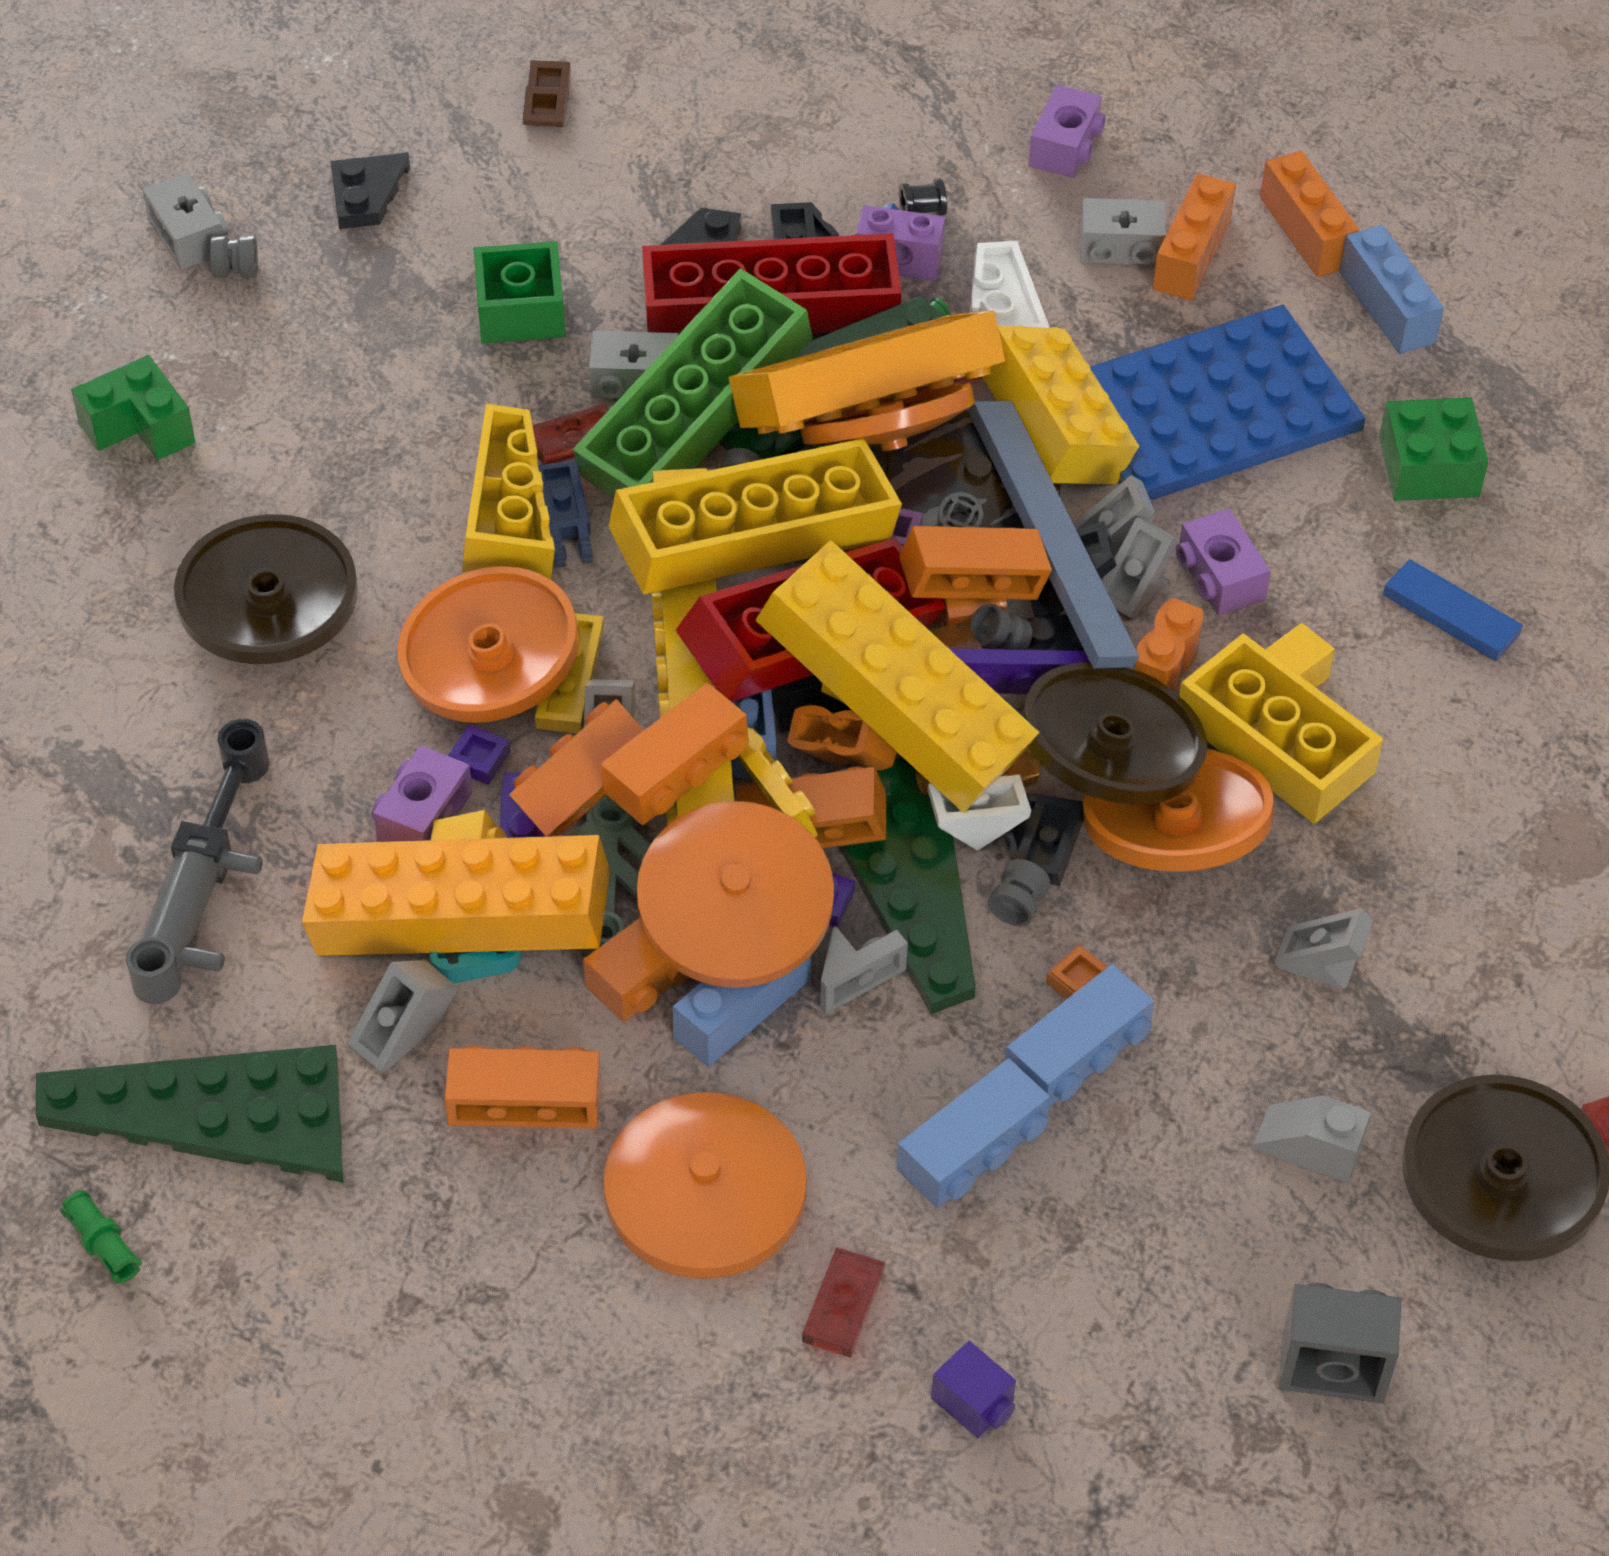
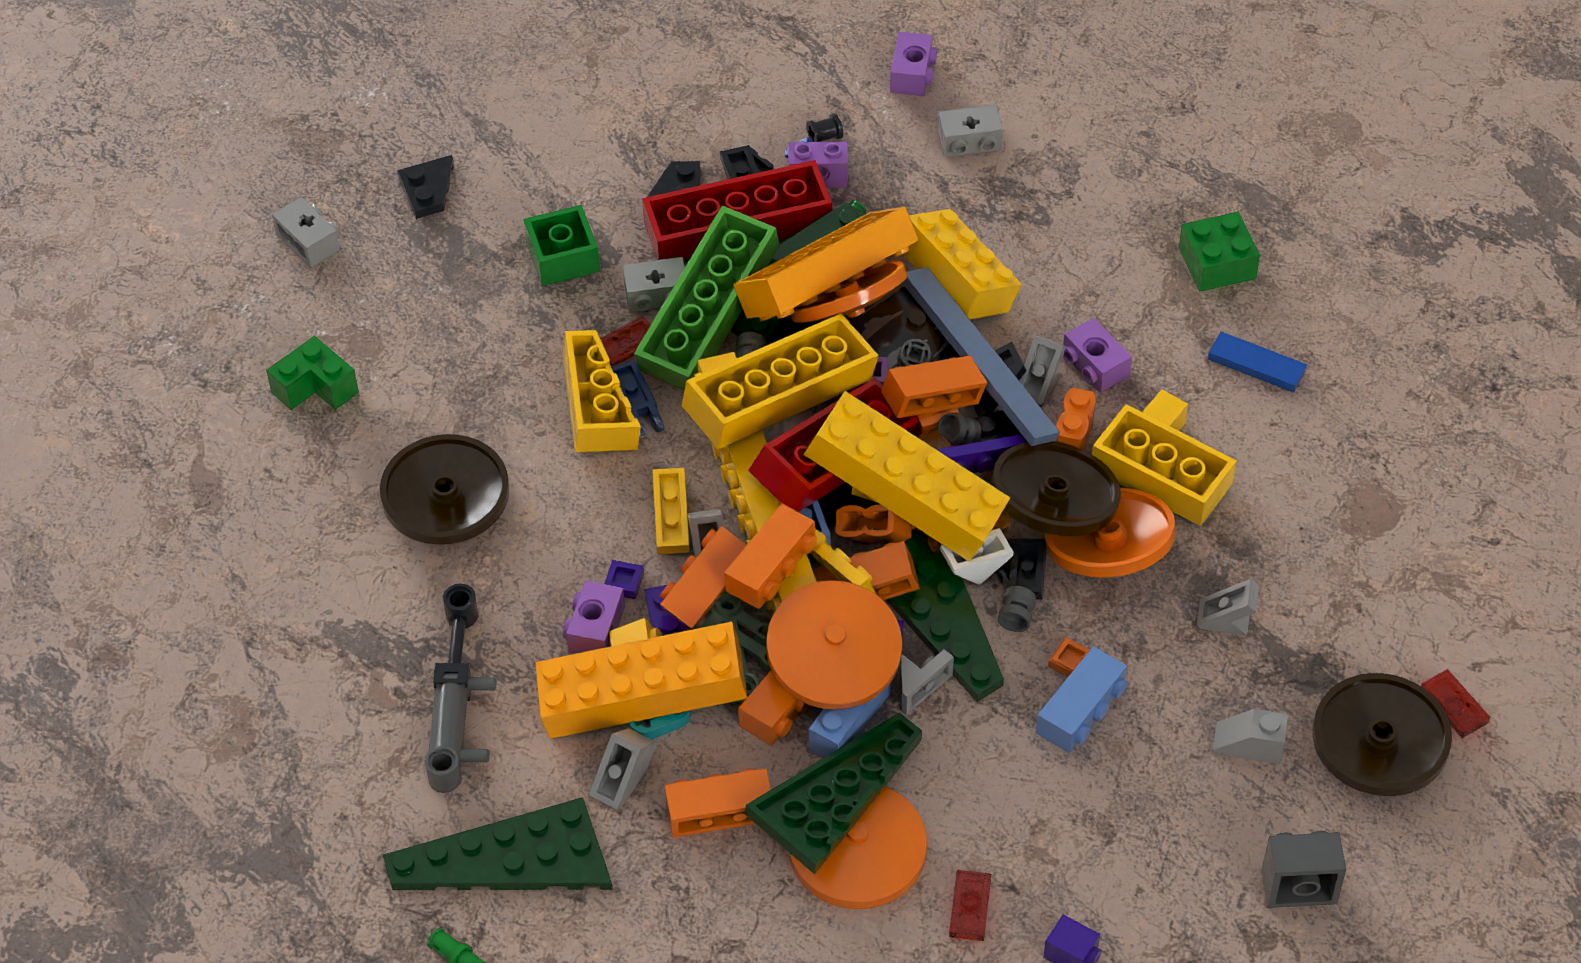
camera: 10 degrees left, 0 degrees up
(234, 256) = (356, 250): dark grey wheel -> none
(488, 644) = (611, 501): orange dish -> none
(547, 93) = (537, 94): reddish brown slope -> none
(668, 1112) = (827, 799): none -> dark green wing
(973, 1133) = (1028, 777): medium blue brick -> none
(1004, 285) = (898, 185): white wing -> none
(1120, 510) = (1020, 331): light grey slope -> none
(1194, 236) = (1020, 126): orange brick -> none
(1225, 401) = (1069, 241): blue plate -> none
(1307, 211) = (1095, 96): orange brick -> none
(1391, 289) = (1163, 142): medium blue brick -> none

